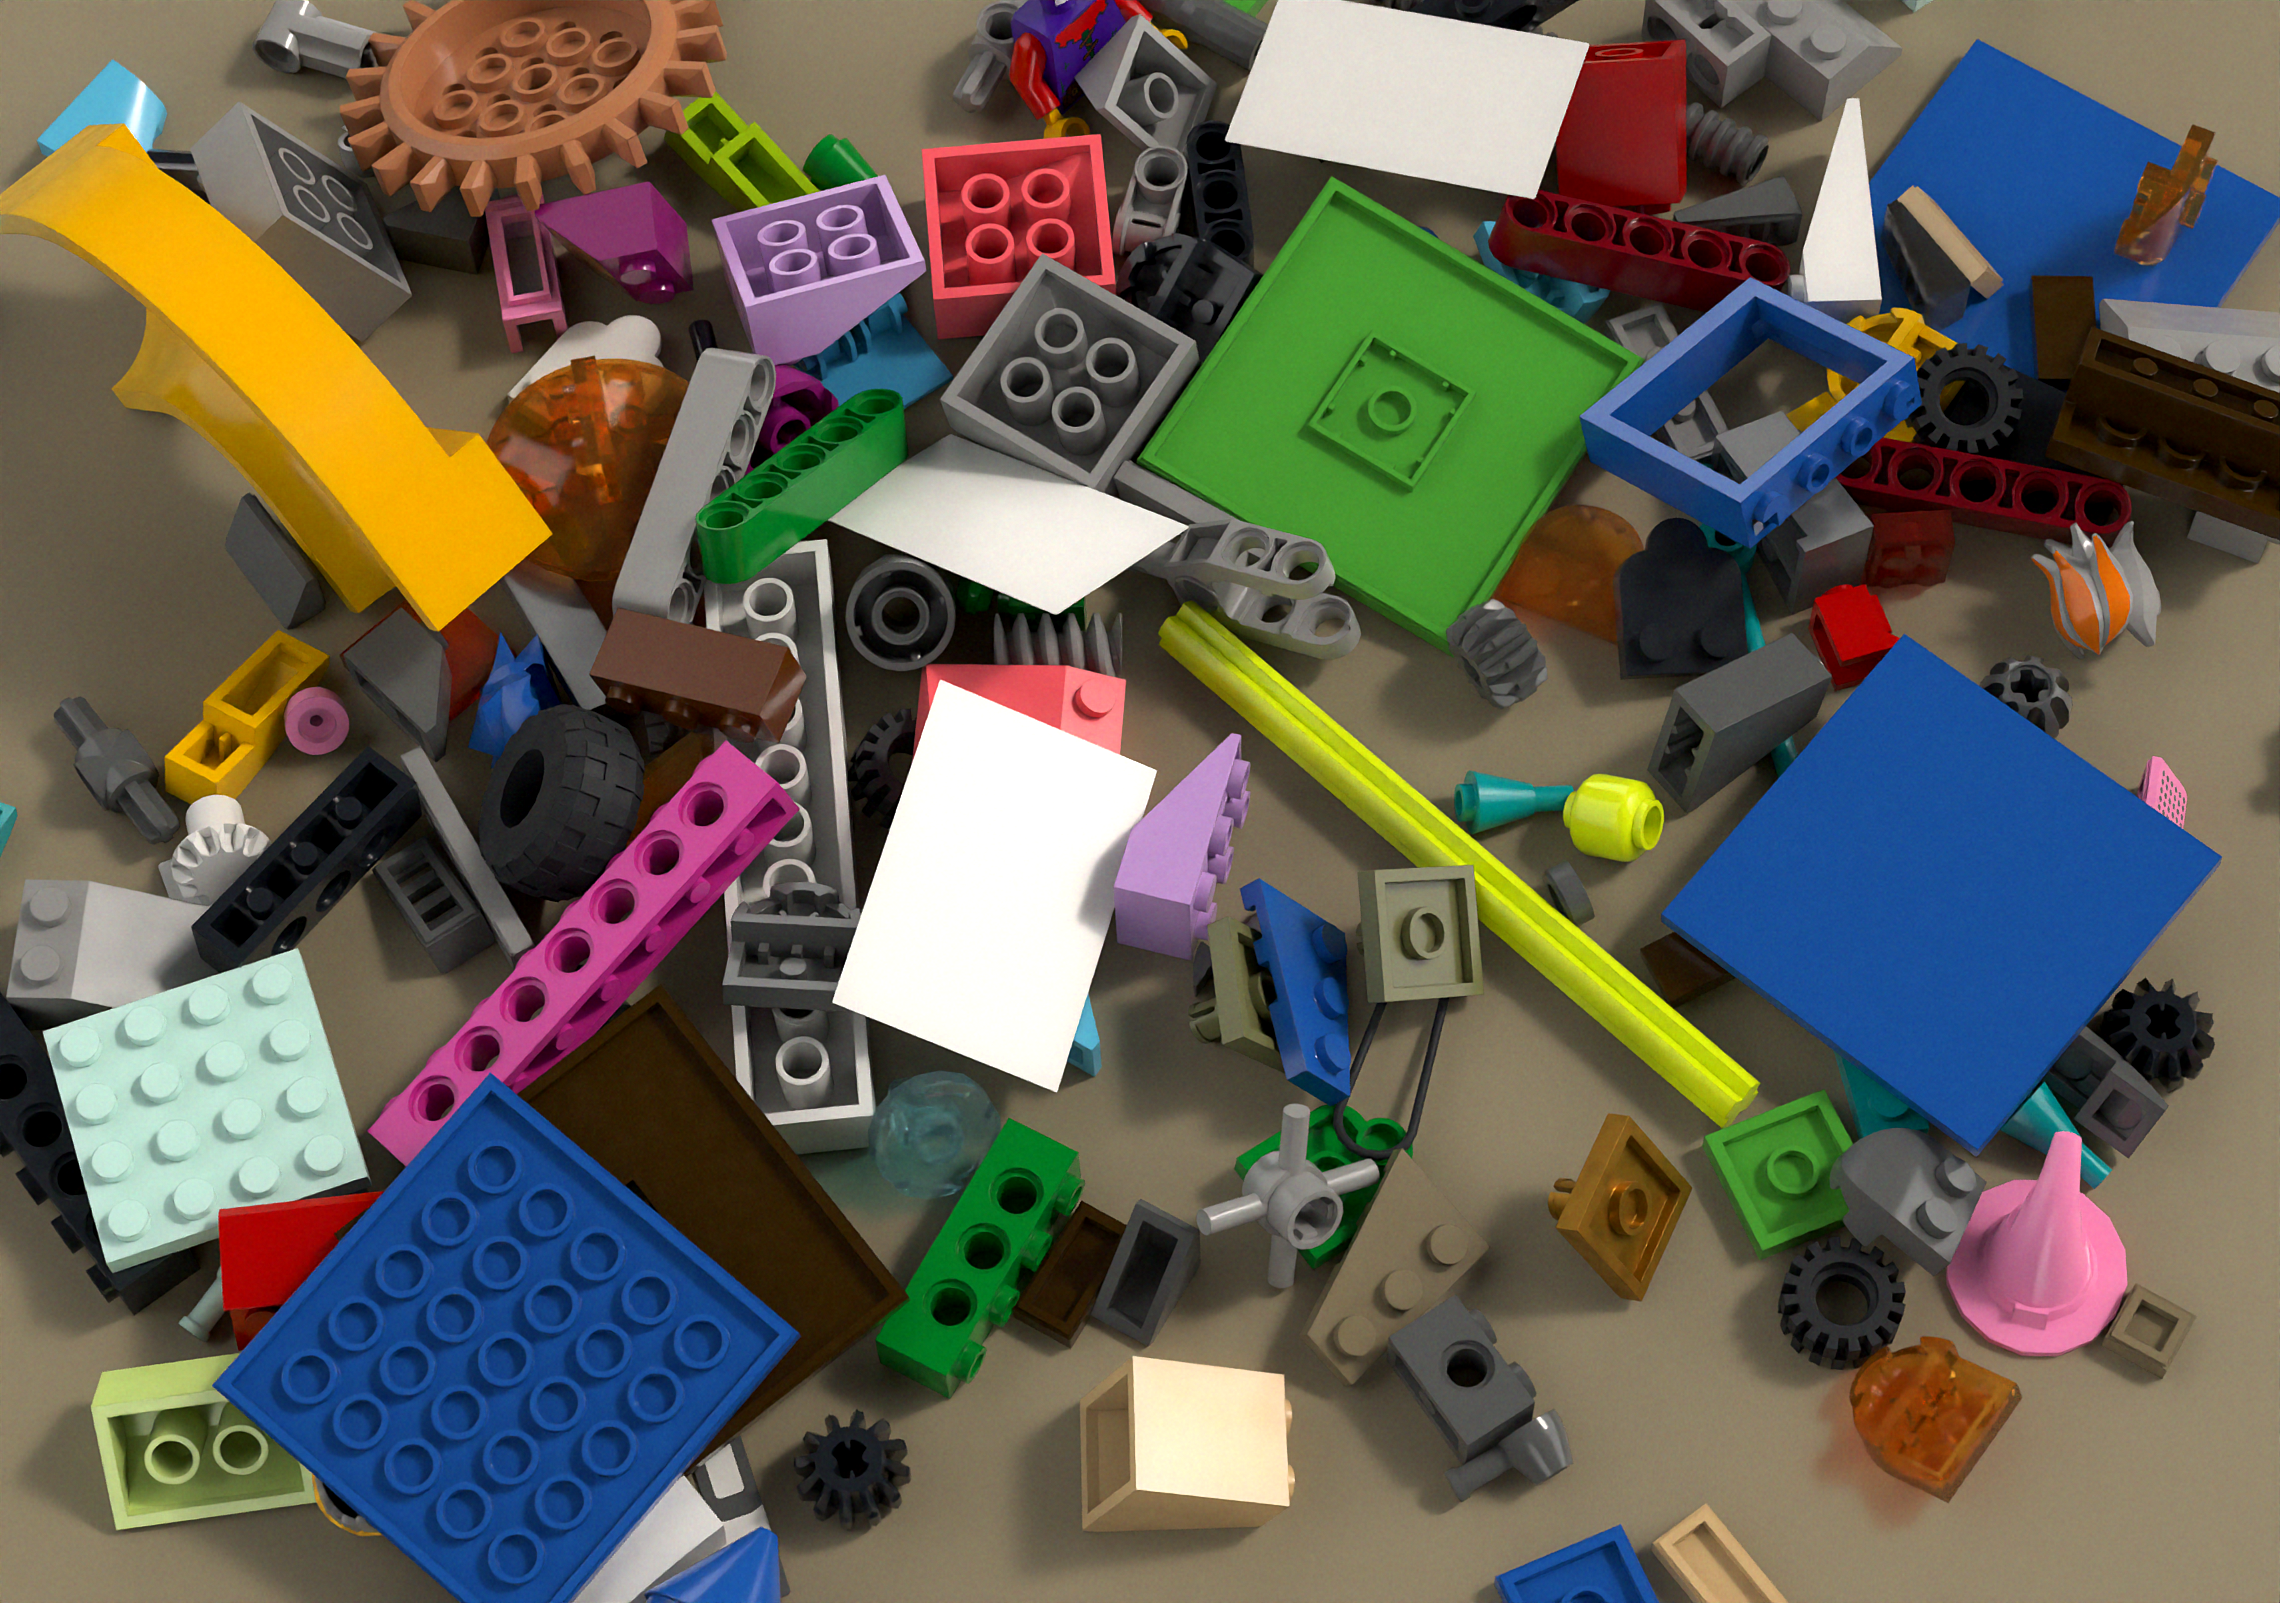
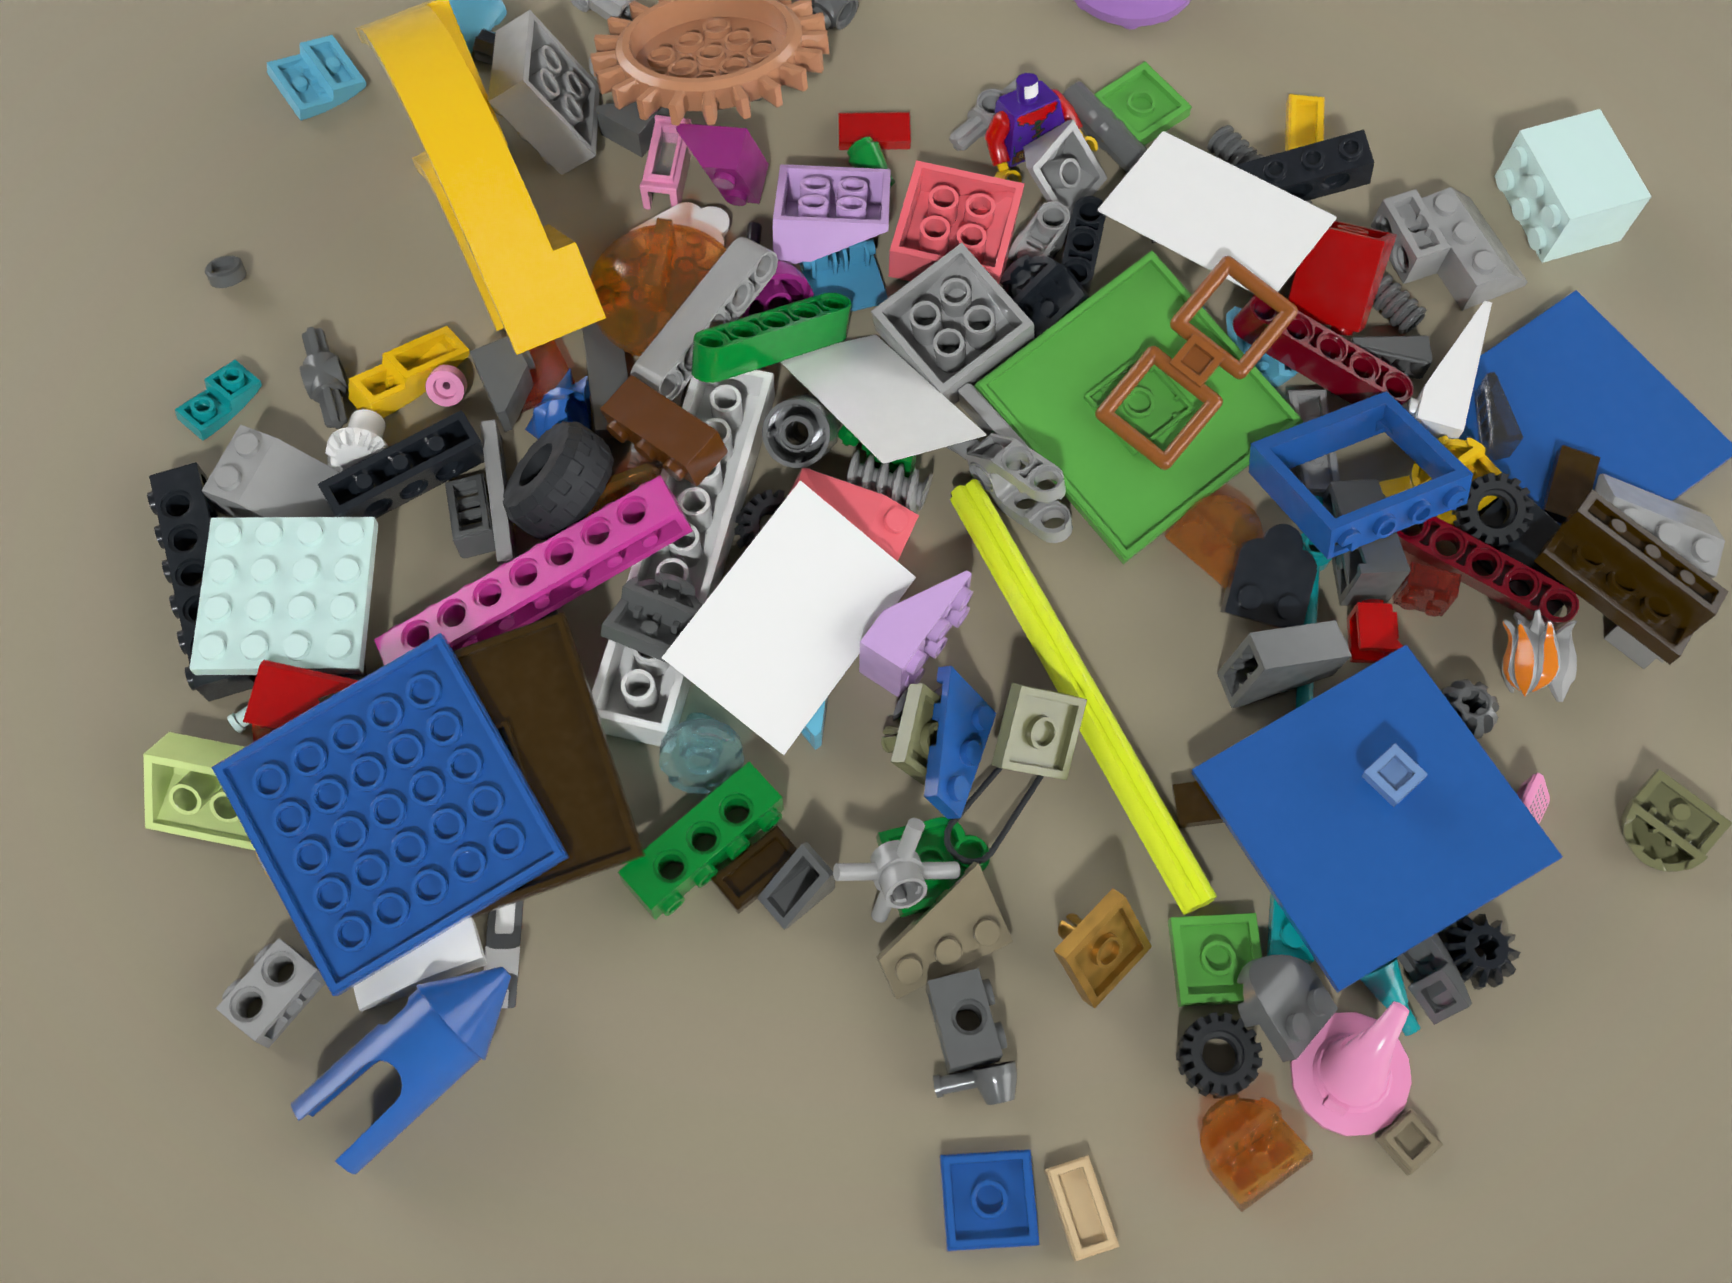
camera: 15 degrees right, 5 degrees up
(273, 564) = (460, 288): dark grey slope -> none
(736, 157) = (810, 131): lime slope -> none
(846, 112) = (888, 129): none -> red tile
(850, 1445) = (561, 952): black gear -> none
(1184, 1448) = (780, 1005): slope -> none
(1457, 324) = (1196, 362): none -> dark orange bar
(1493, 801) = (1116, 662): teal cone -> none
(1497, 653) = (1149, 572): dark grey gear -> none
(1568, 893) = (1140, 735): dark grey tile -> none
(1613, 817) = (1185, 697): neon yellow head -> none
(1949, 820) = (1394, 775): none -> medium blue tile
(1952, 241) = (1519, 408): tan tile -> none
(2168, 201) = (1666, 425): clear orange slope -> none

